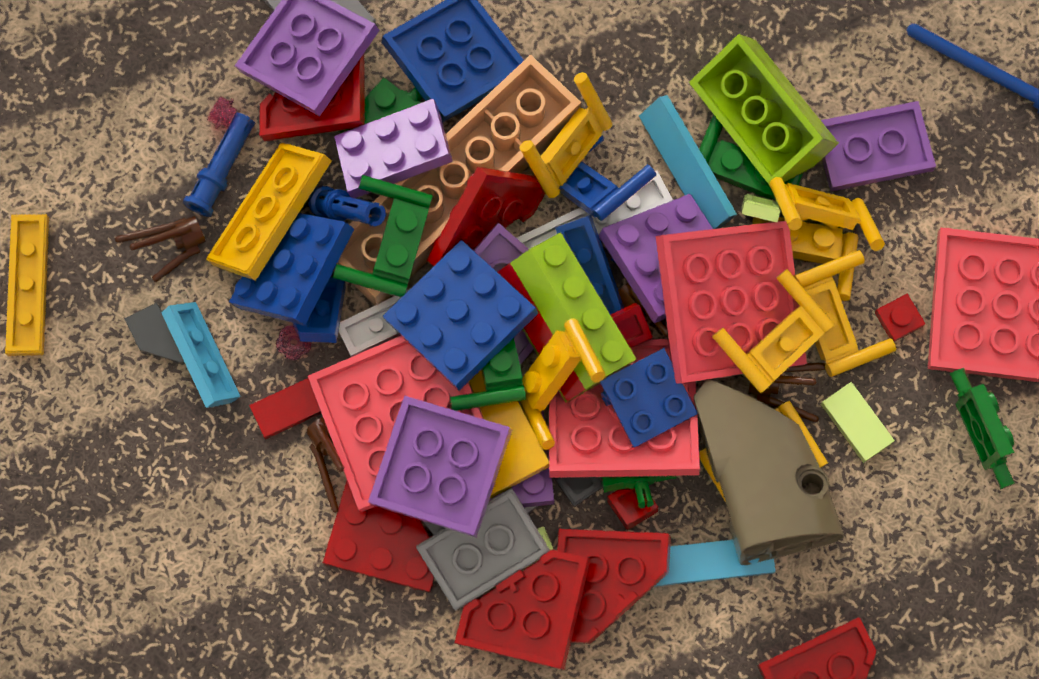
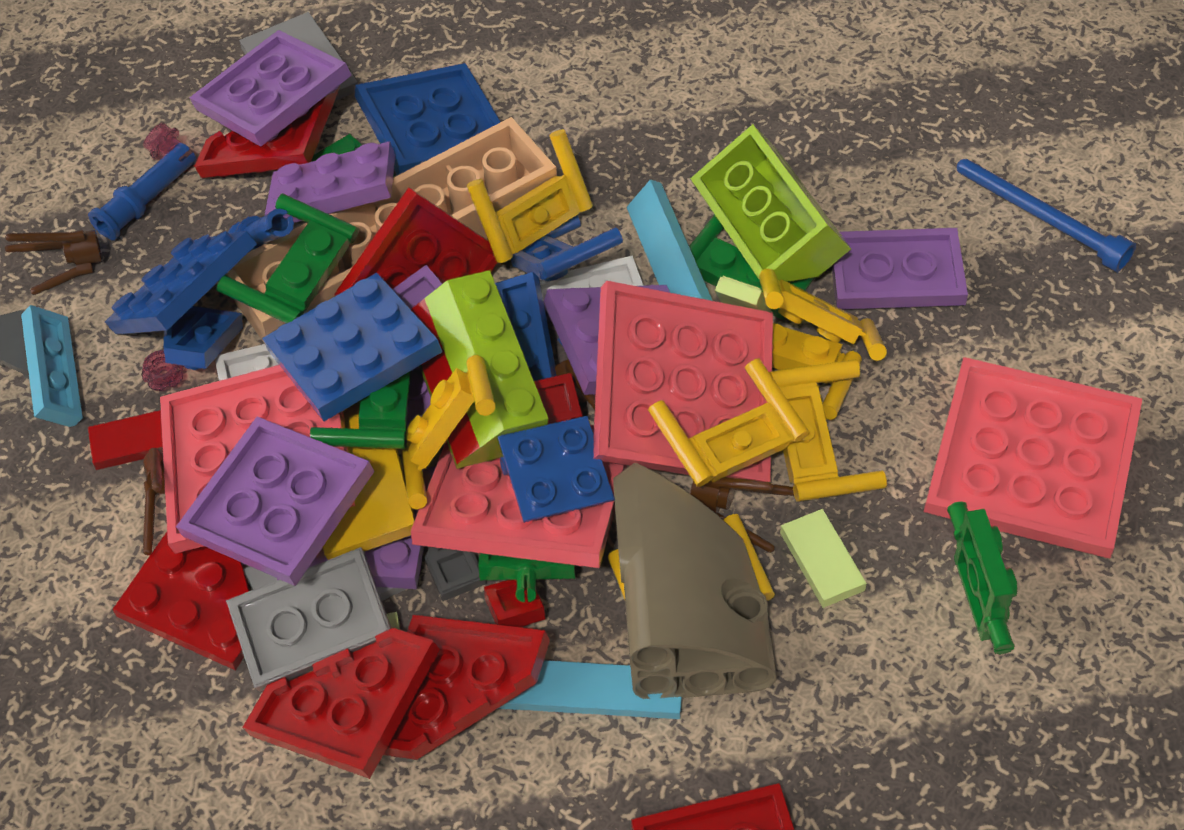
camera: 15 degrees right, 20 degrees down
(268, 210) = (176, 233): yellow tile -> none
(900, 317) = (898, 450): red plate -> none

